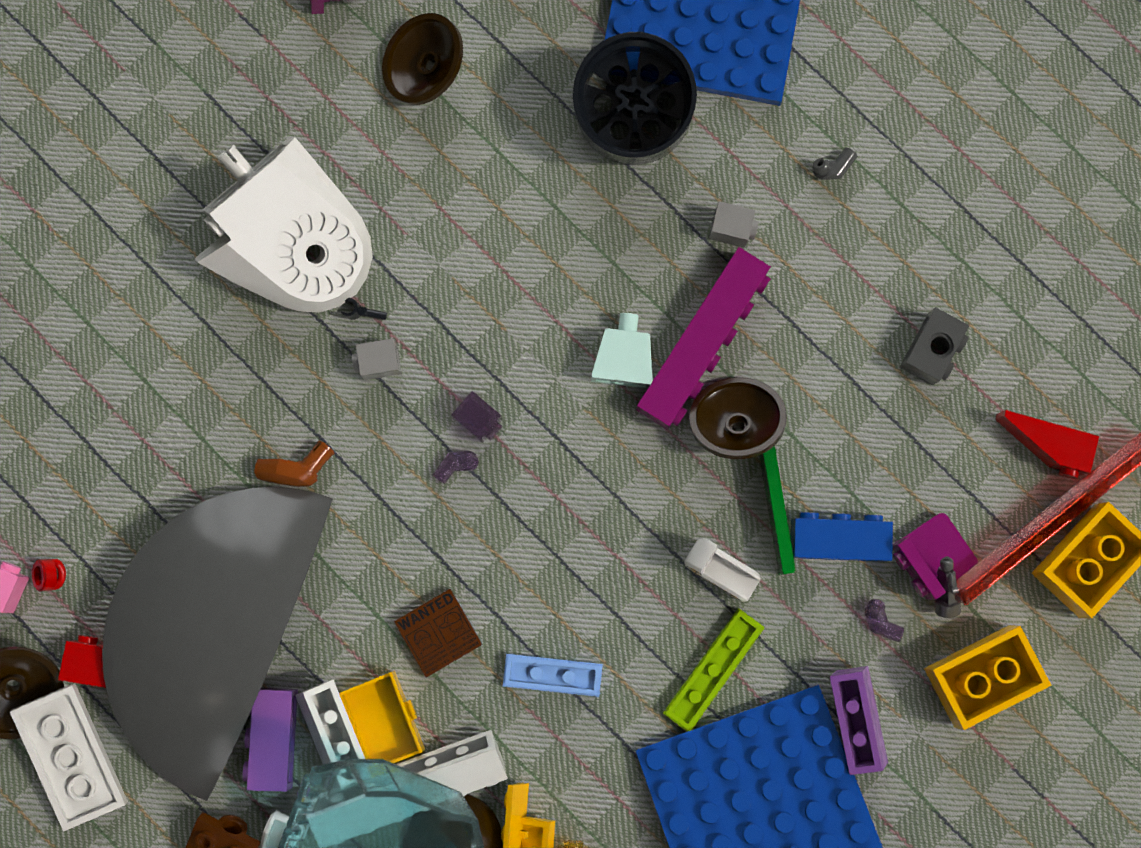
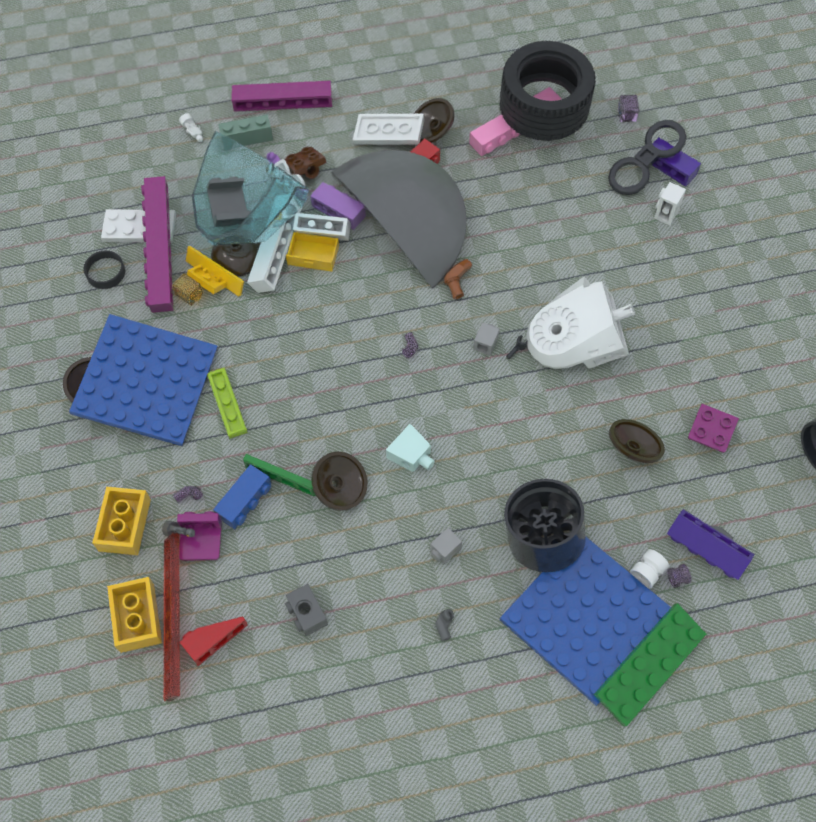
camera: 125 degrees right, 20 degrees down
(45, 574) = (476, 158): red tile -> none
(438, 633) = (335, 296): reddish brown tile -> none
(478, 417) = (426, 366): clear purple brick -> none
(552, 675) = (279, 332): light blue tile -> none
(703, 338) = (393, 494): magenta brick -> none
(722, 570) = (272, 430): white animal -> none
(859, 720) = (151, 447): medium lavender brick -> none

